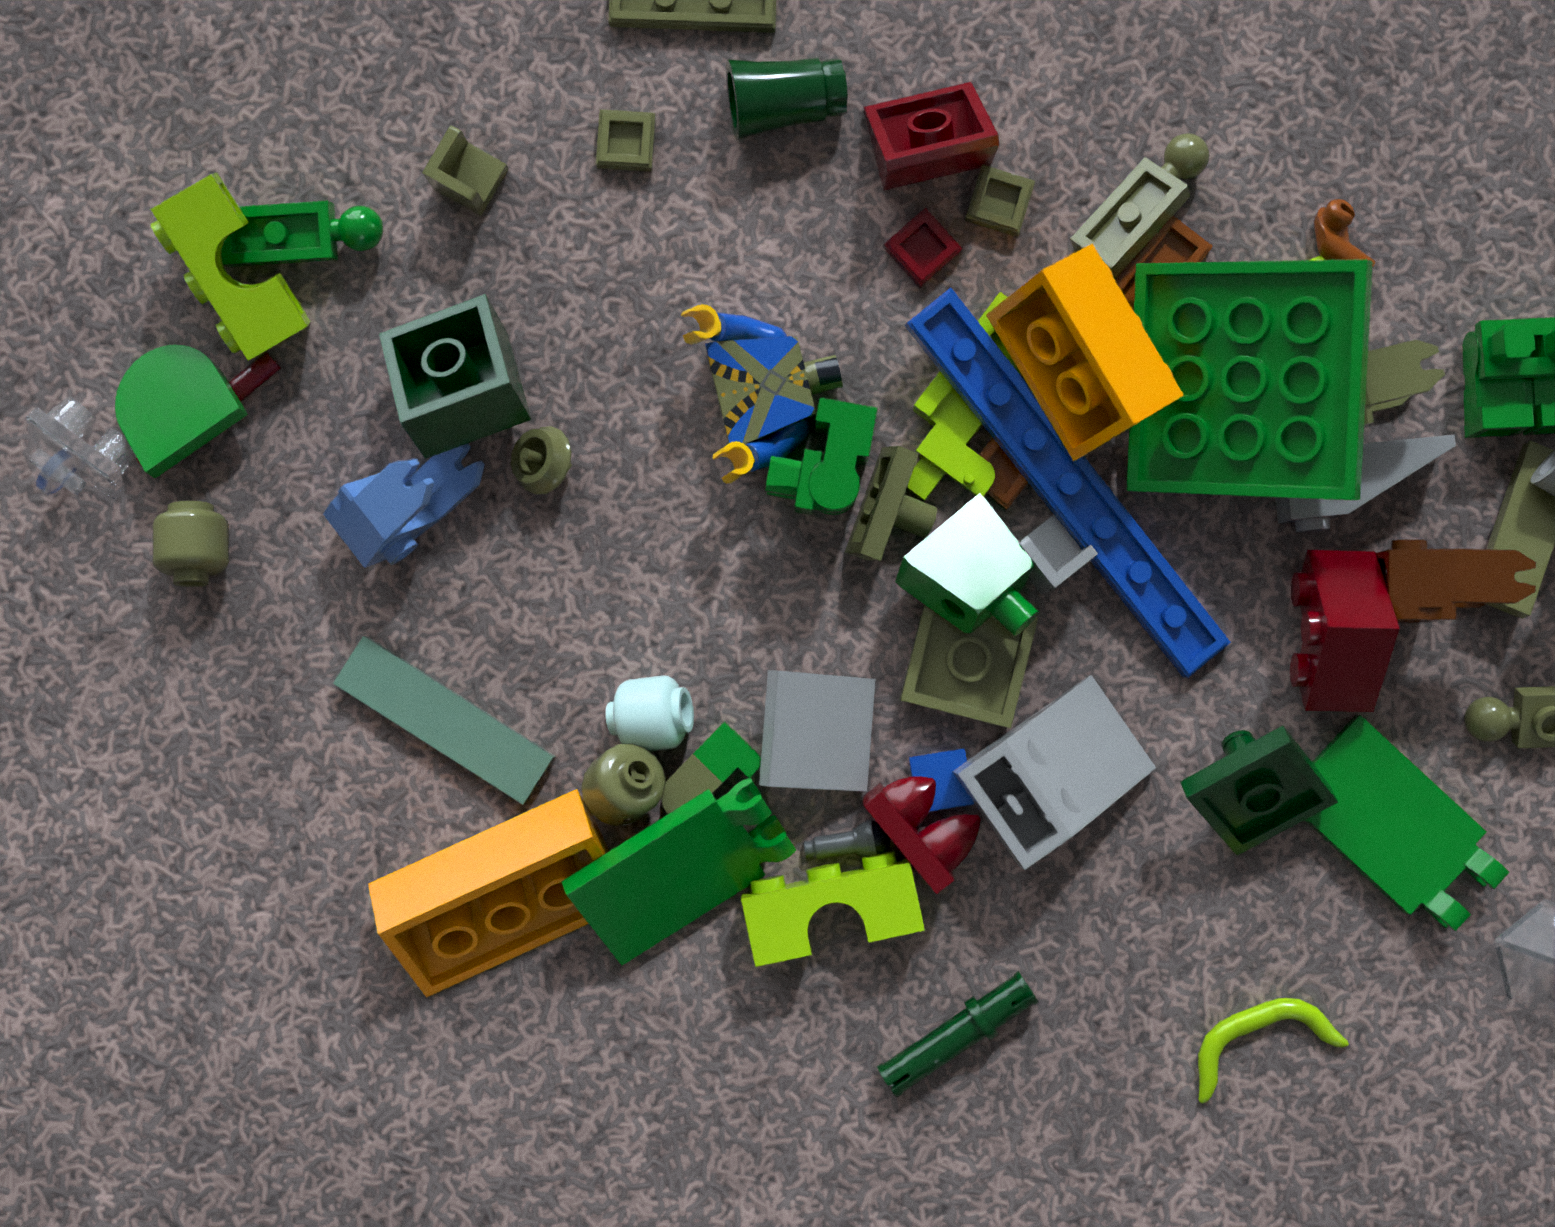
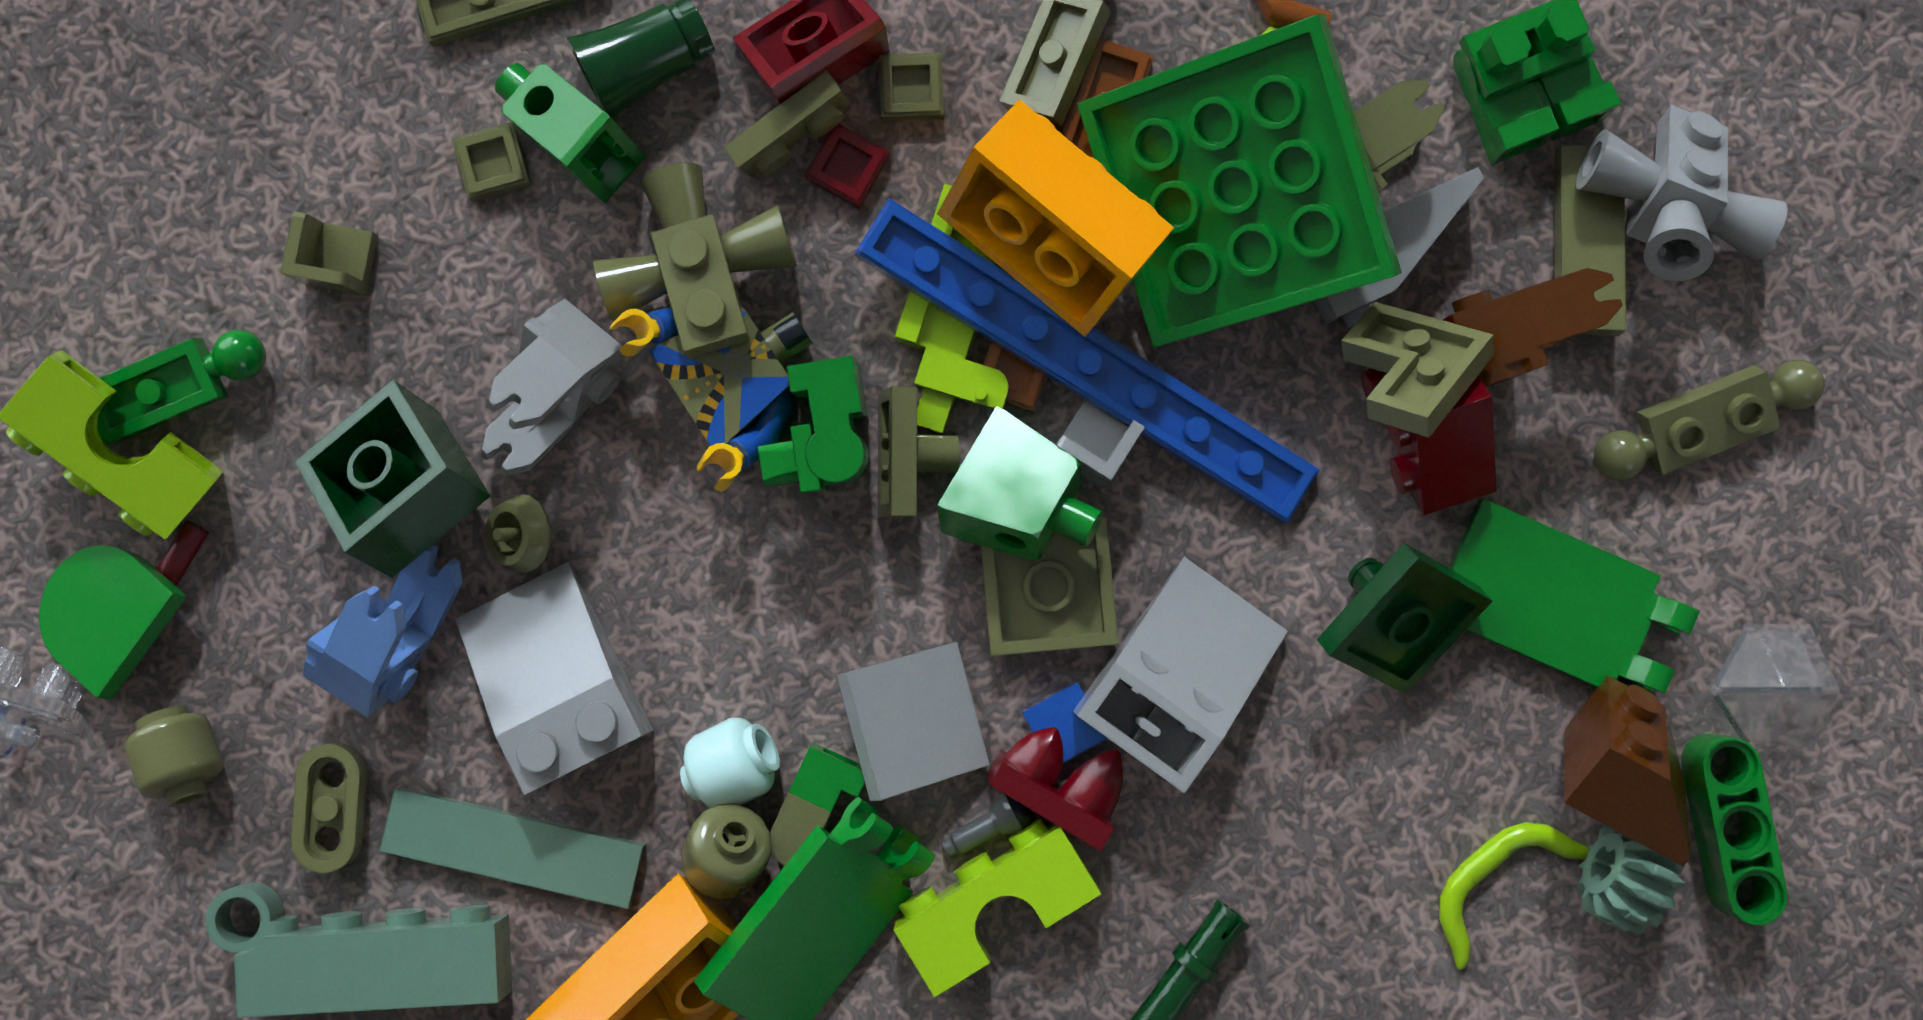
camera: 15 degrees left, 0 degrees up
(287, 772) = (360, 963): none -> sand green hinge
(299, 629) = (323, 805): none -> olive plate
(525, 589) = (550, 678): none -> light grey slope
(622, 337) = (553, 380): none -> light grey piece
(702, 135) = (568, 128): none -> green torso
(769, 283) = (694, 262): none -> olive brick
(908, 191) = (809, 111): none -> olive plate
(1351, 582) = (1425, 365): none -> olive plate
(1373, 1072) = (1627, 882): none -> sand green gear
(1402, 981) = (1627, 768): none -> reddish brown slope
(1485, 1088) = (1755, 848): none -> green beam

